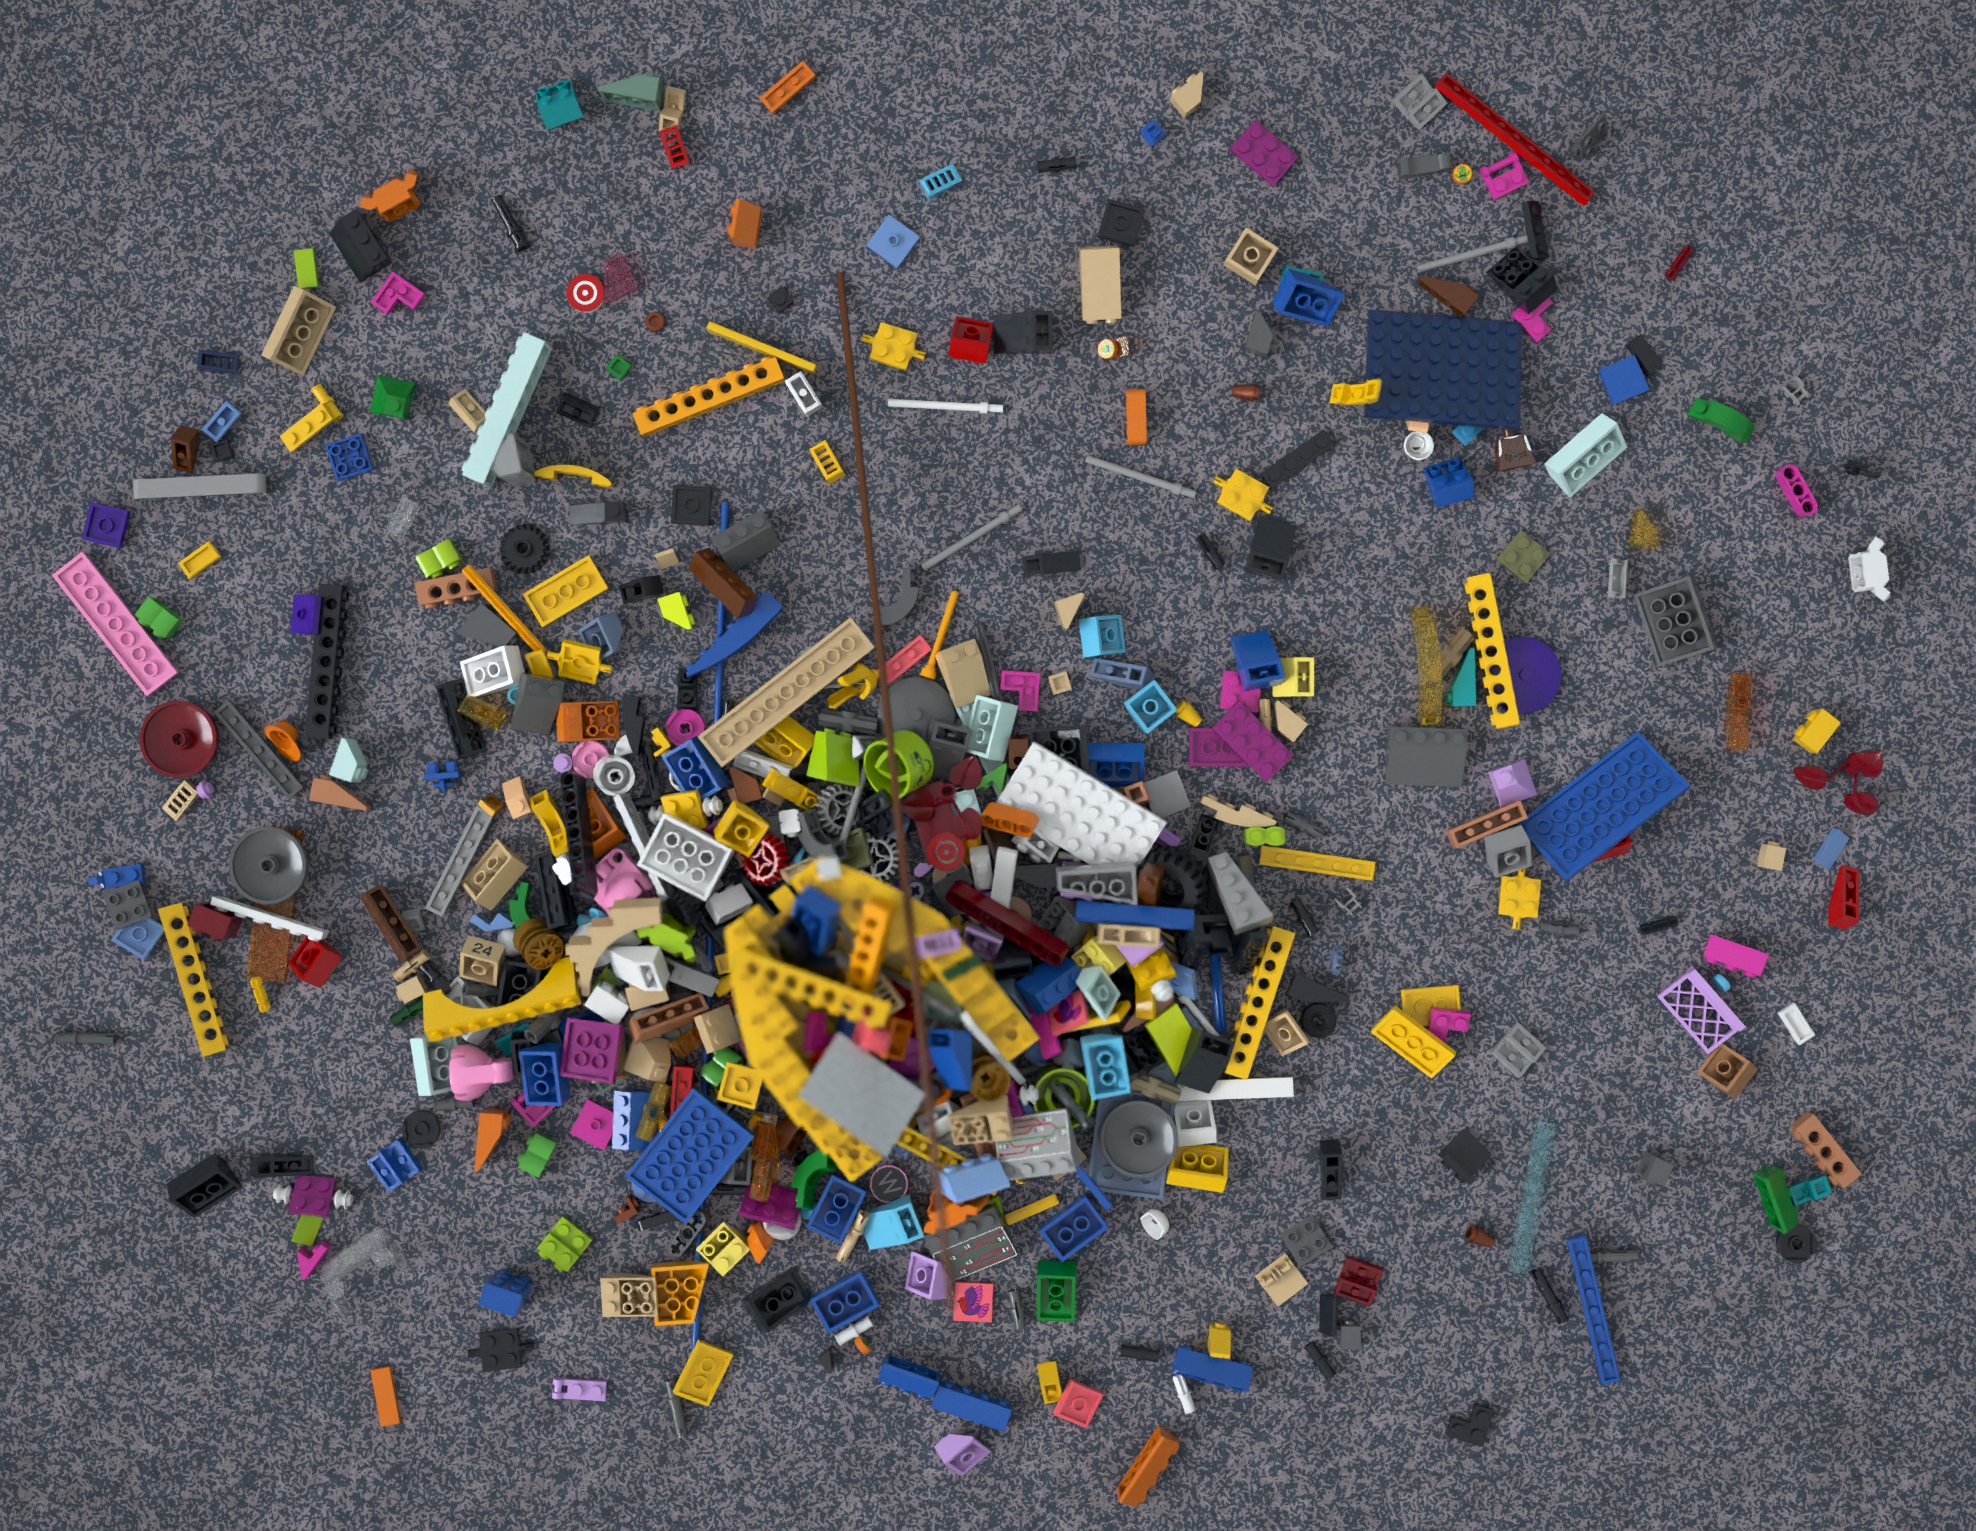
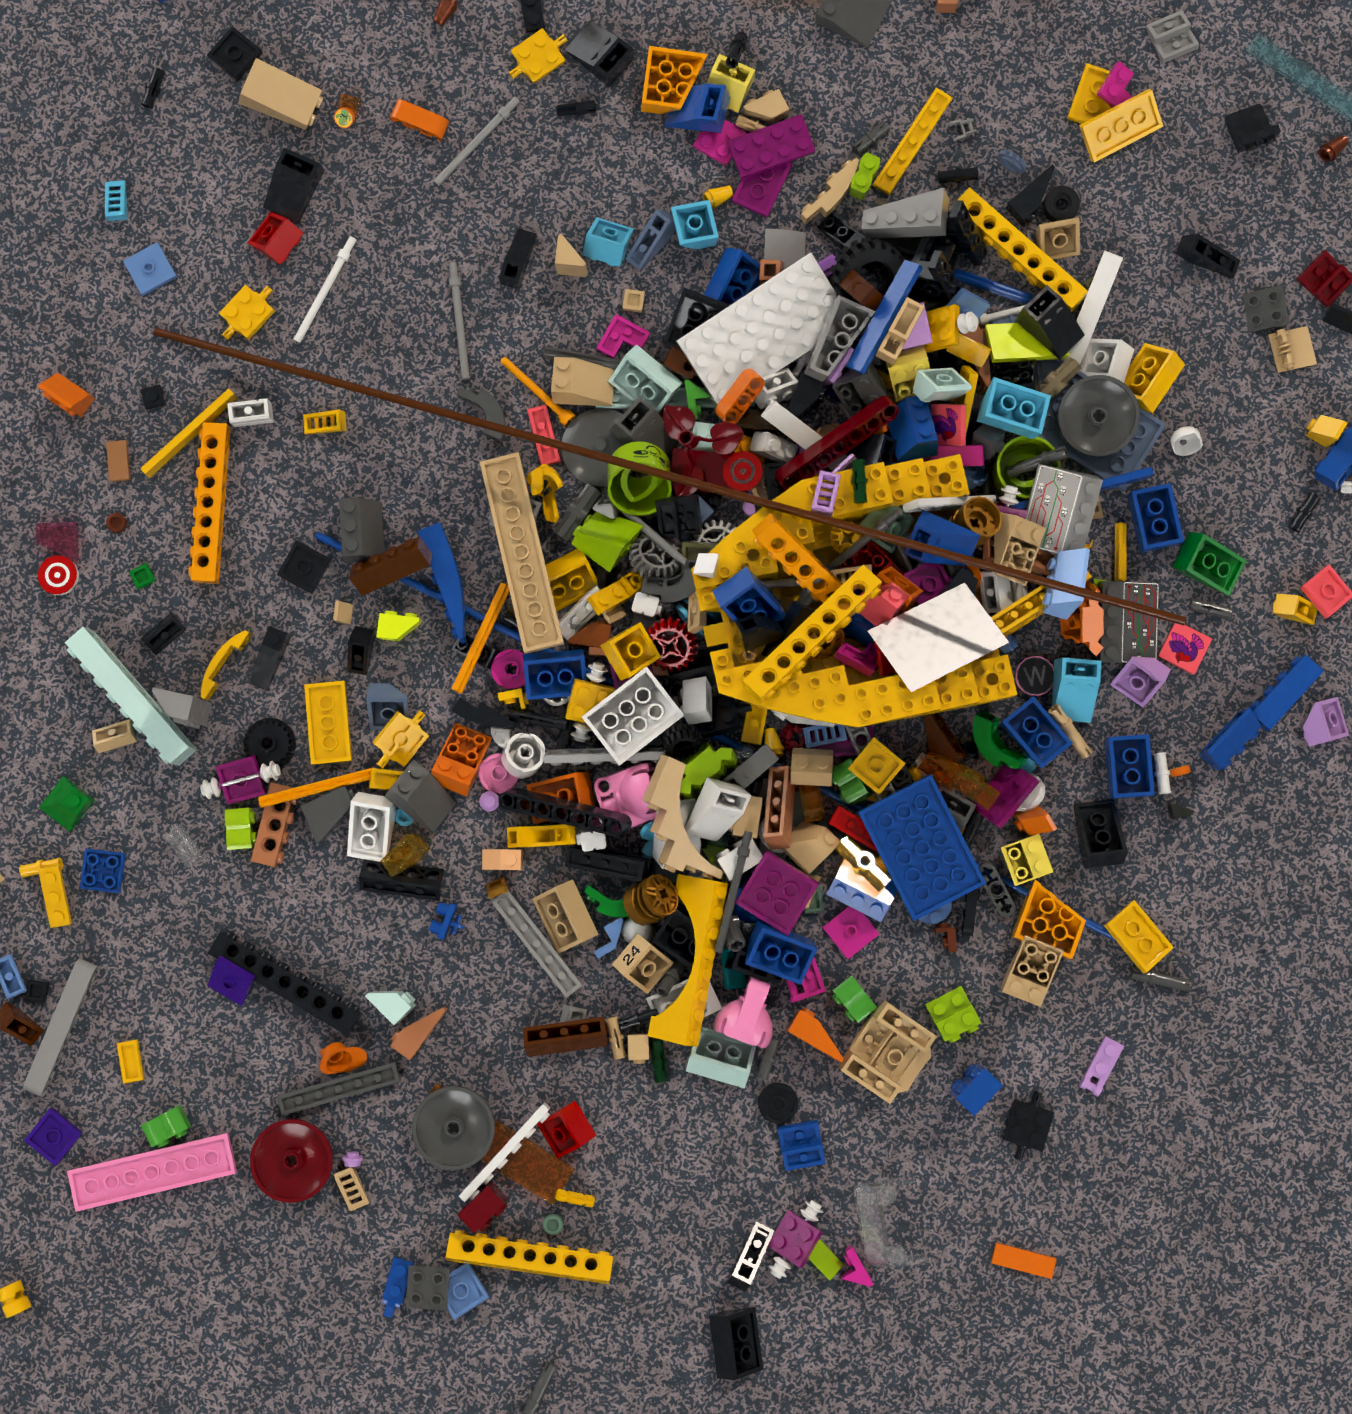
camera: 55 degrees left, 5 degrees down
(231, 985) = (552, 1224): none -> sand green tile
(481, 539) = (240, 779): none -> magenta plate
(504, 1203) = (888, 1052): none -> tan slope
(612, 1005) = (742, 853): none -> dark grey bar
(698, 690) = (481, 638): none -> light orange axle
(709, 297) = (118, 460): none -> medium nougat tile
(1272, 623) = (669, 78): none -> light orange wedge
(1328, 670) = (737, 47): none -> black pin

